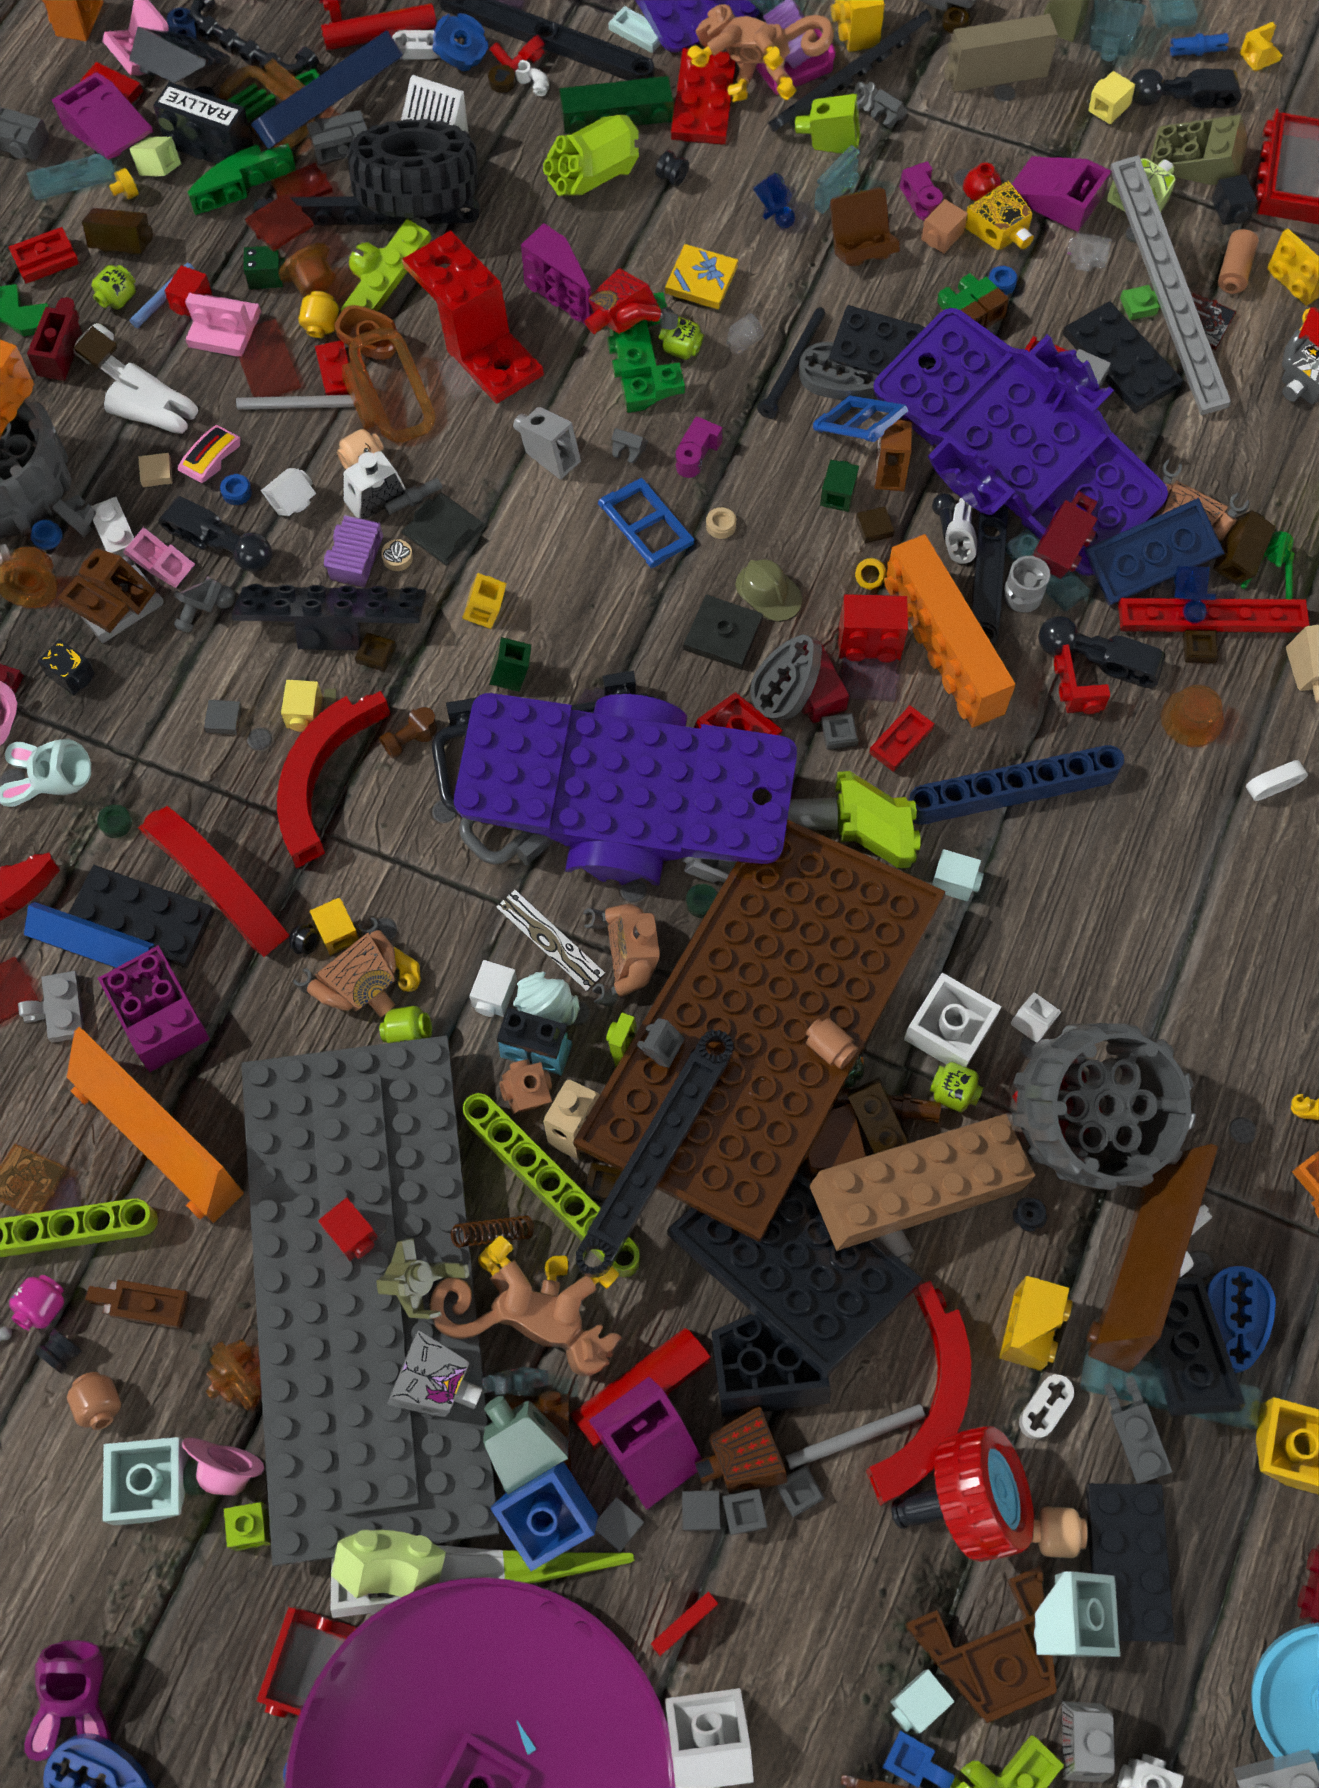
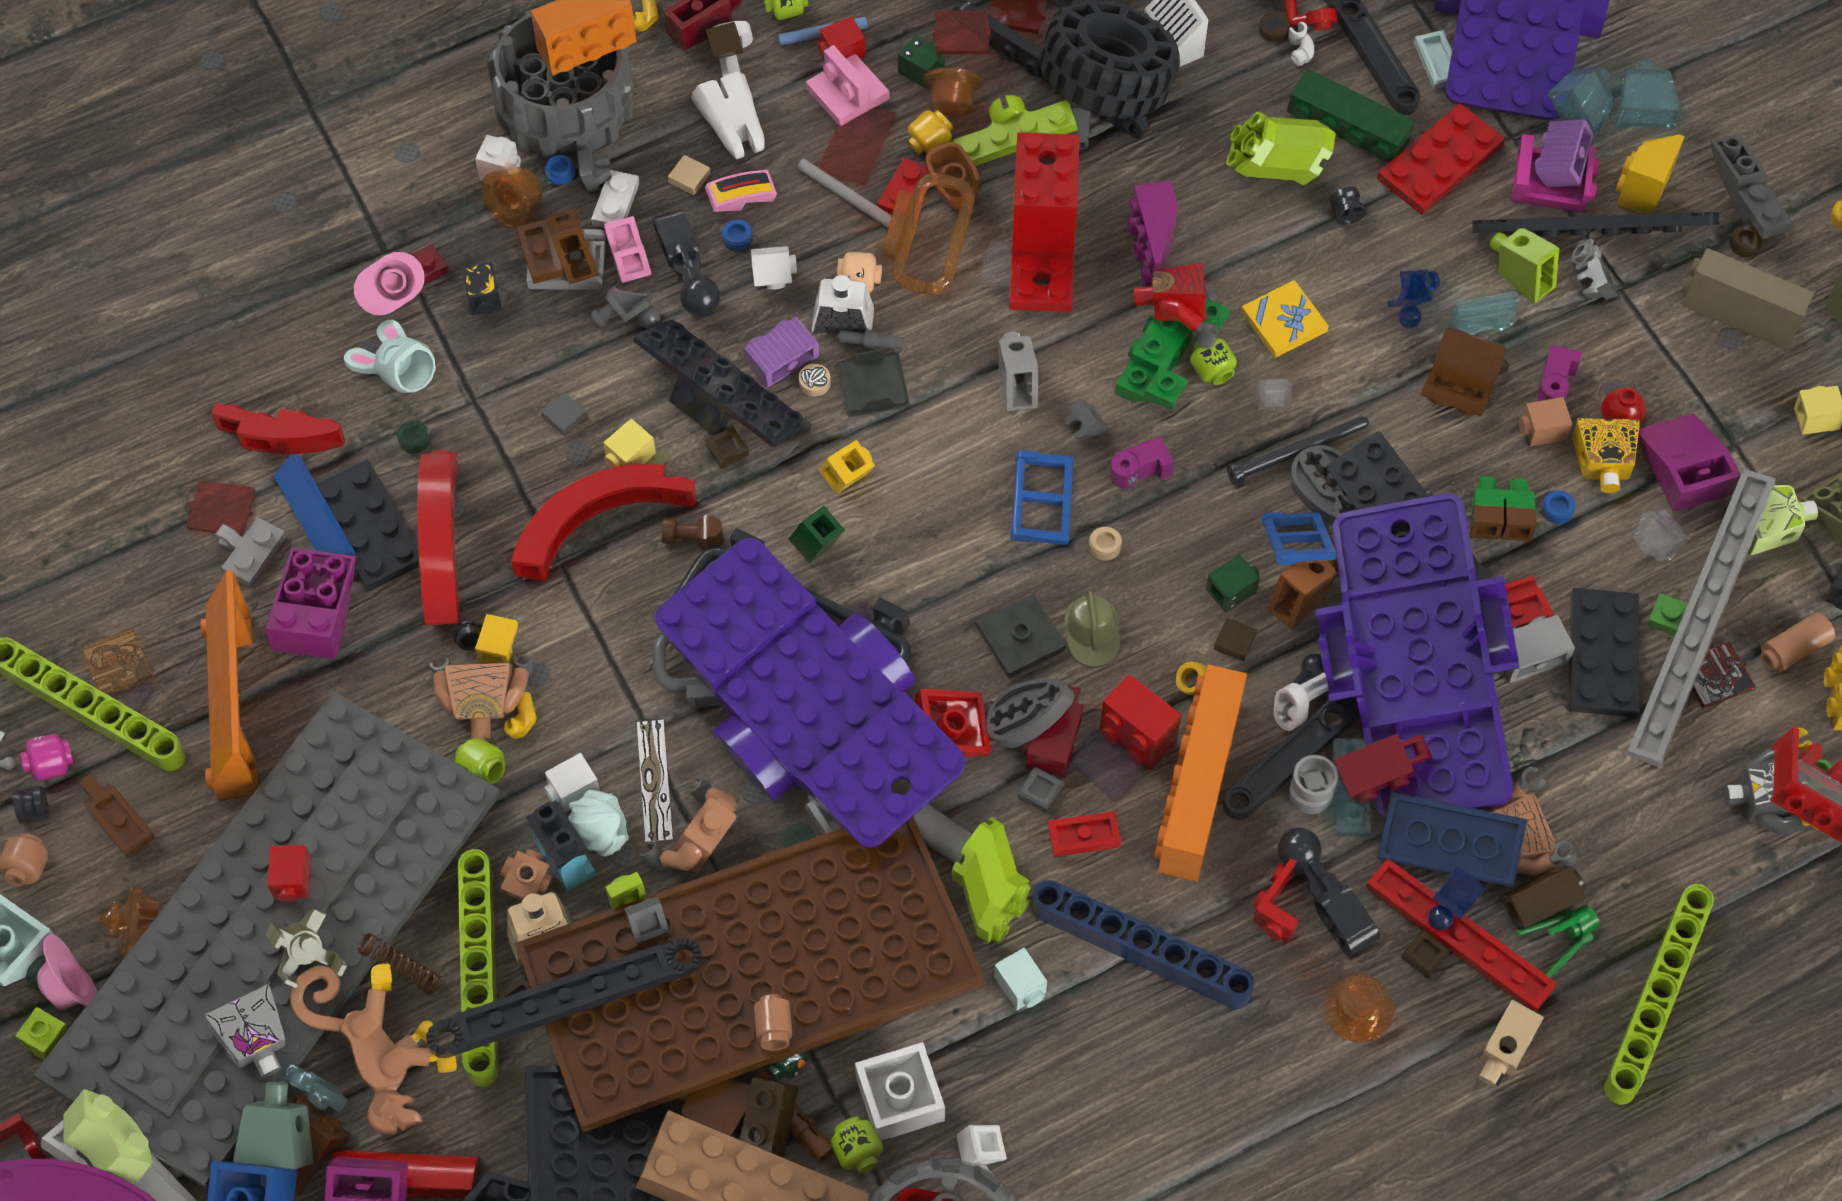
camera: 40 degrees right, 5 degrees down
(755, 42) = (1514, 146): nougat animal -> none
(1276, 780) = (1376, 1115): white beam -> none

